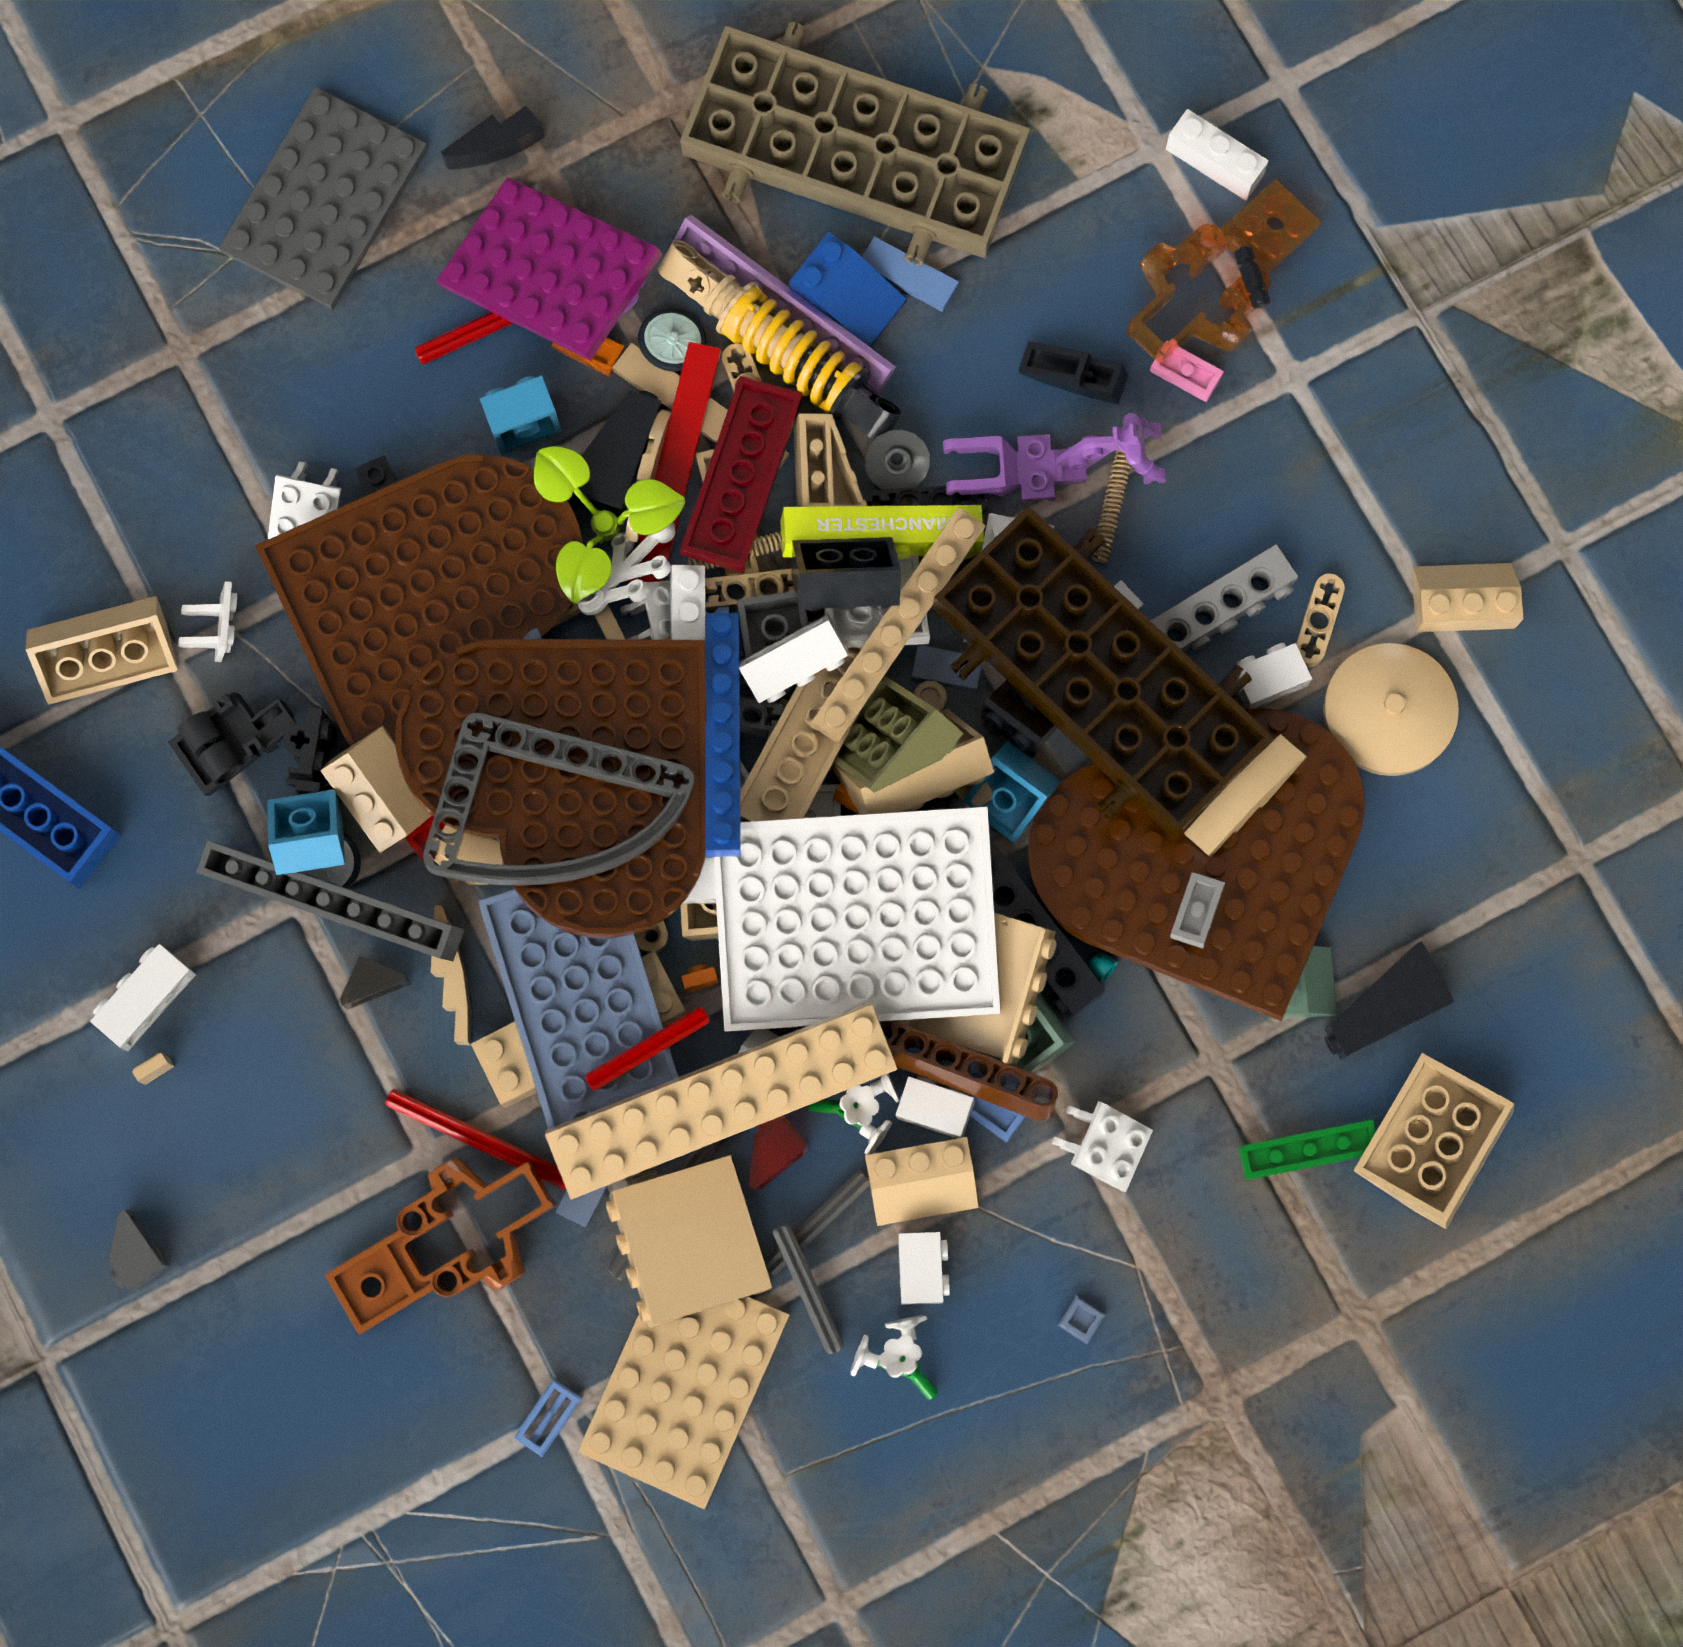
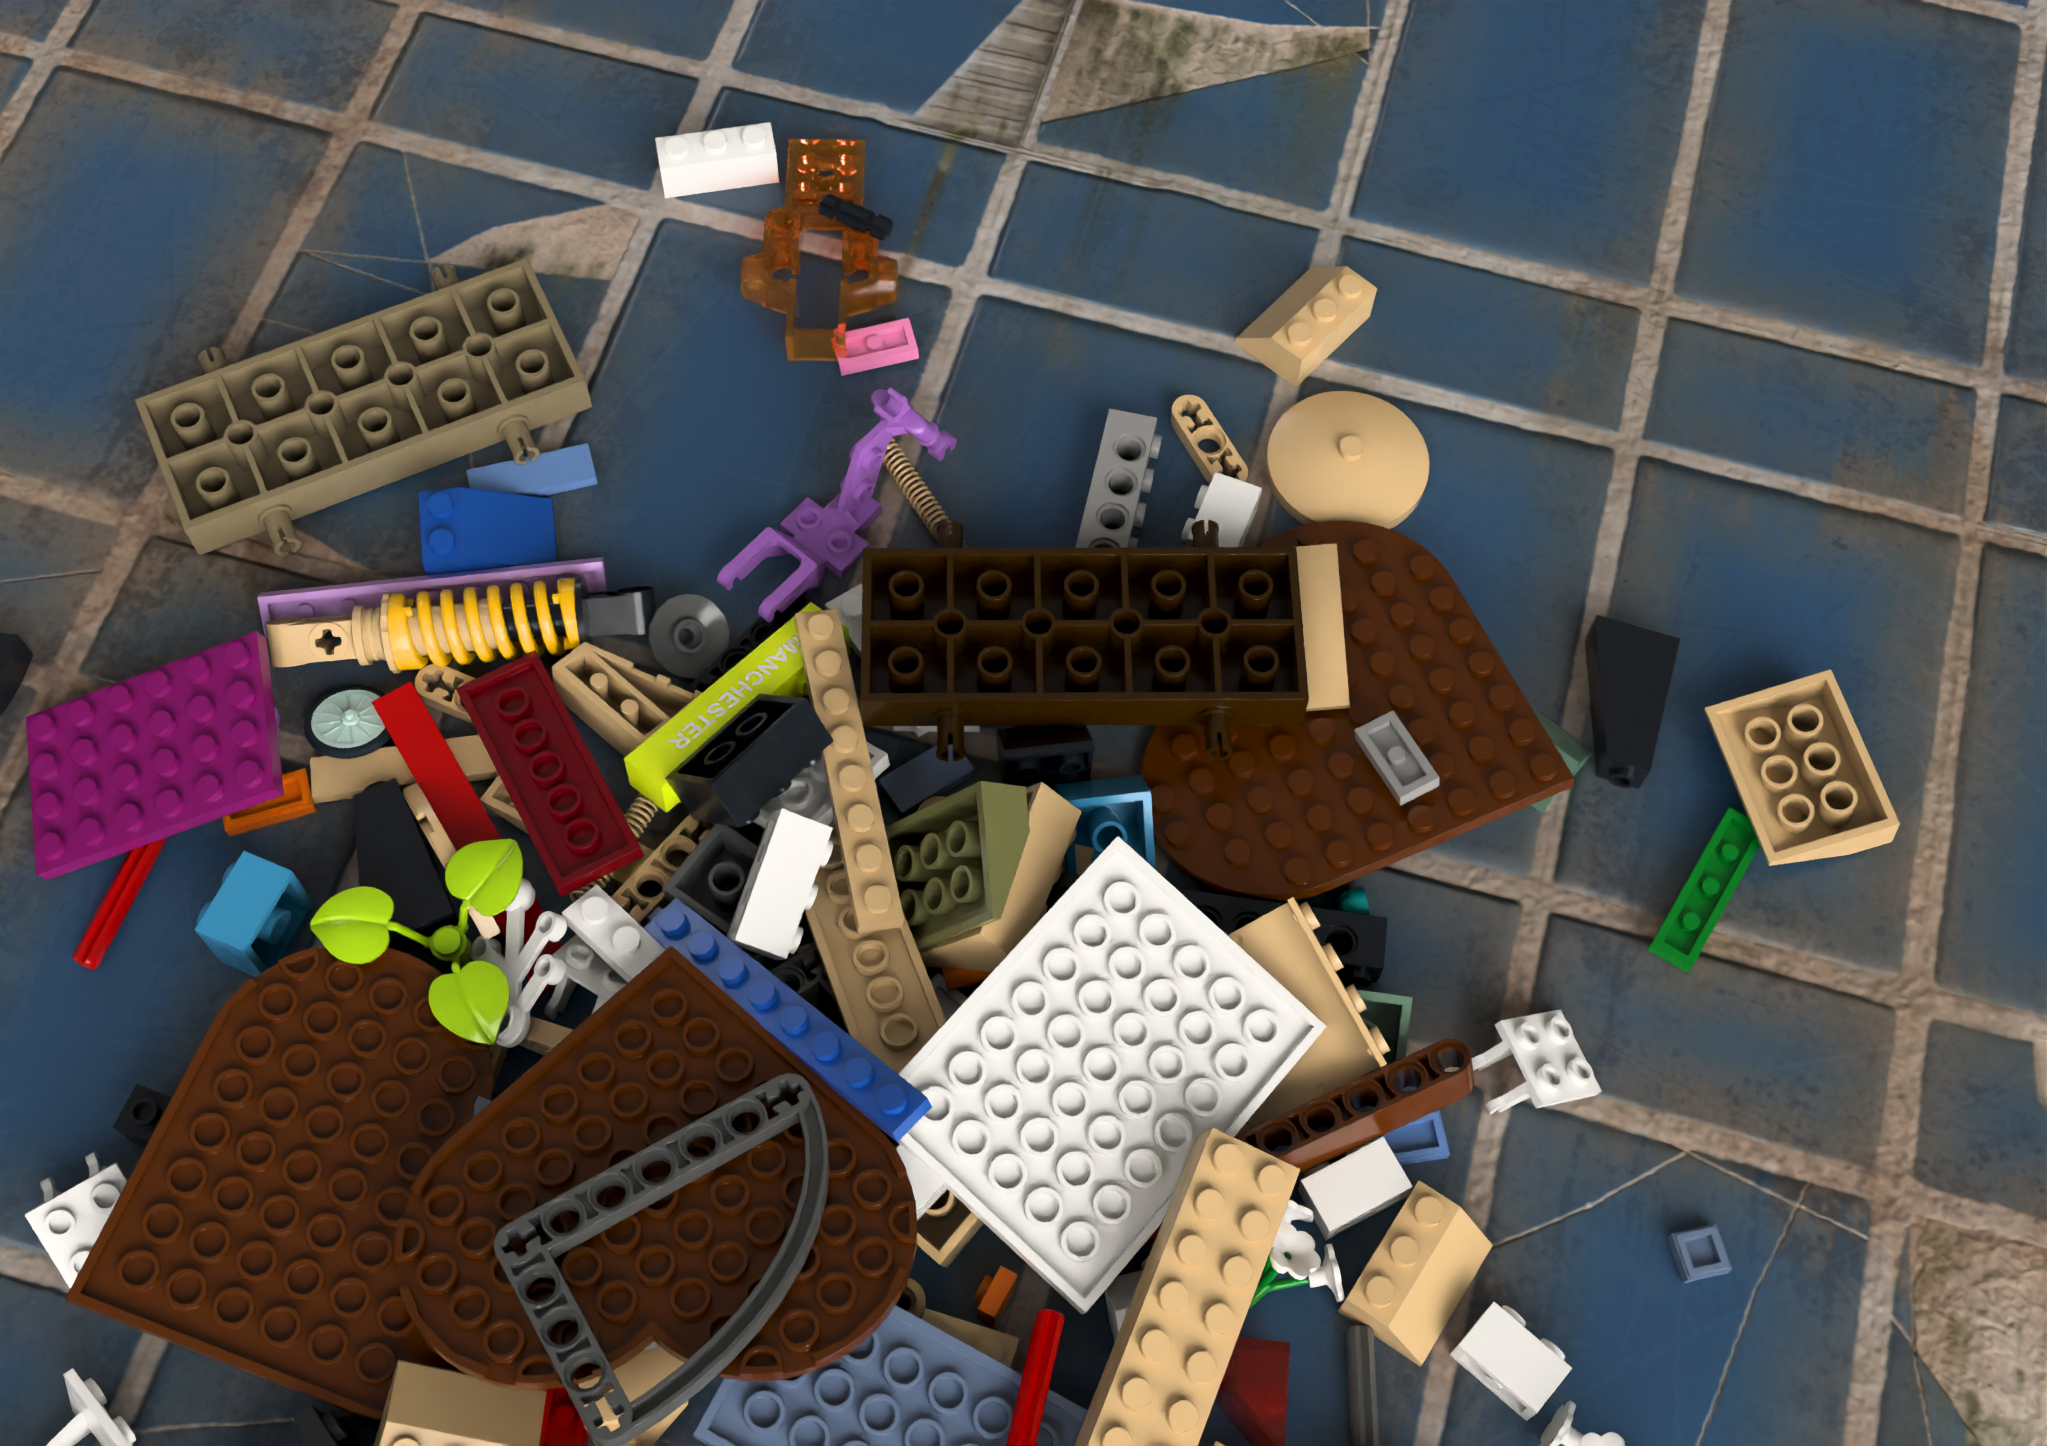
camera: 50 degrees left, 15 degrees down
(1074, 371) = (774, 428): black slope -> none

